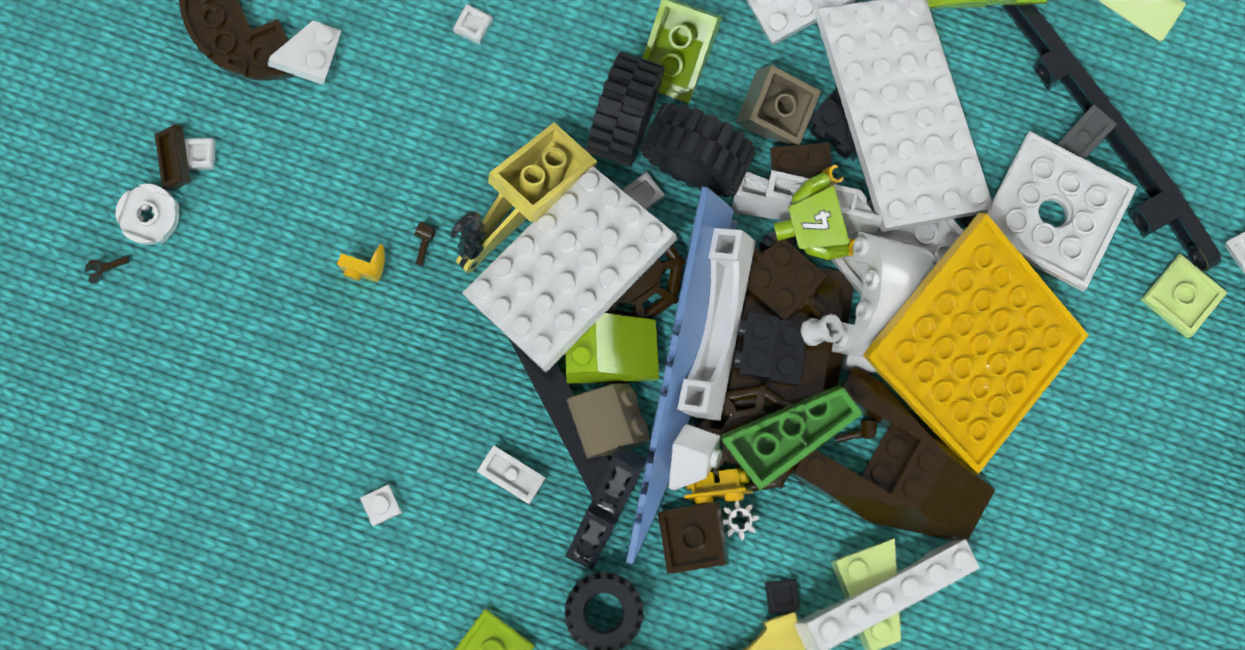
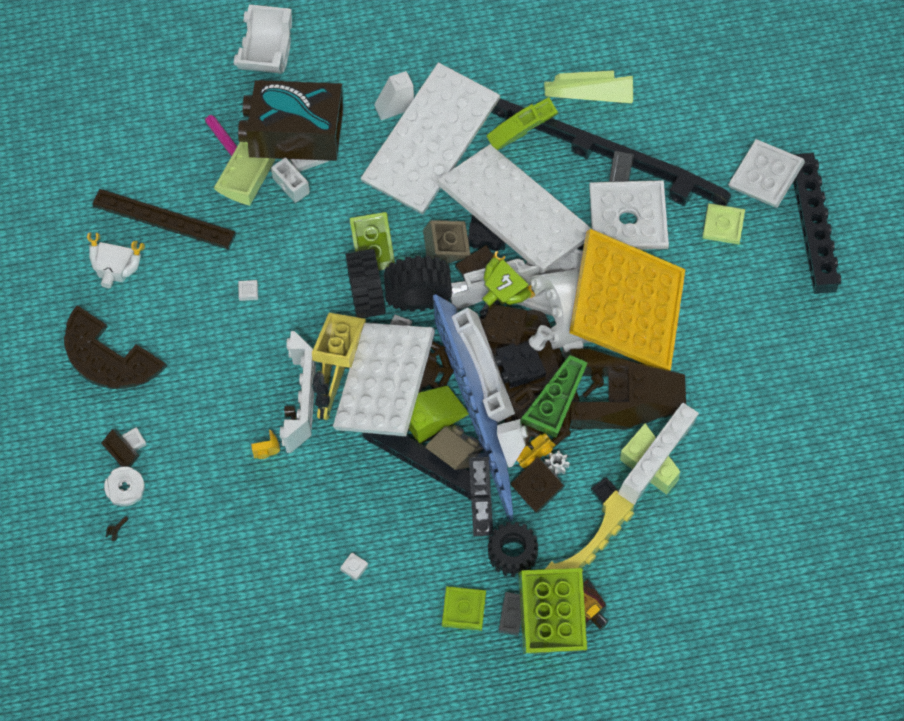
camera: 25 degrees left, 15 degrees down
(308, 52) = (165, 352): white wing -> none
(404, 272) = (299, 430): none -> white slope
(511, 474) = (418, 509): white plate -> none

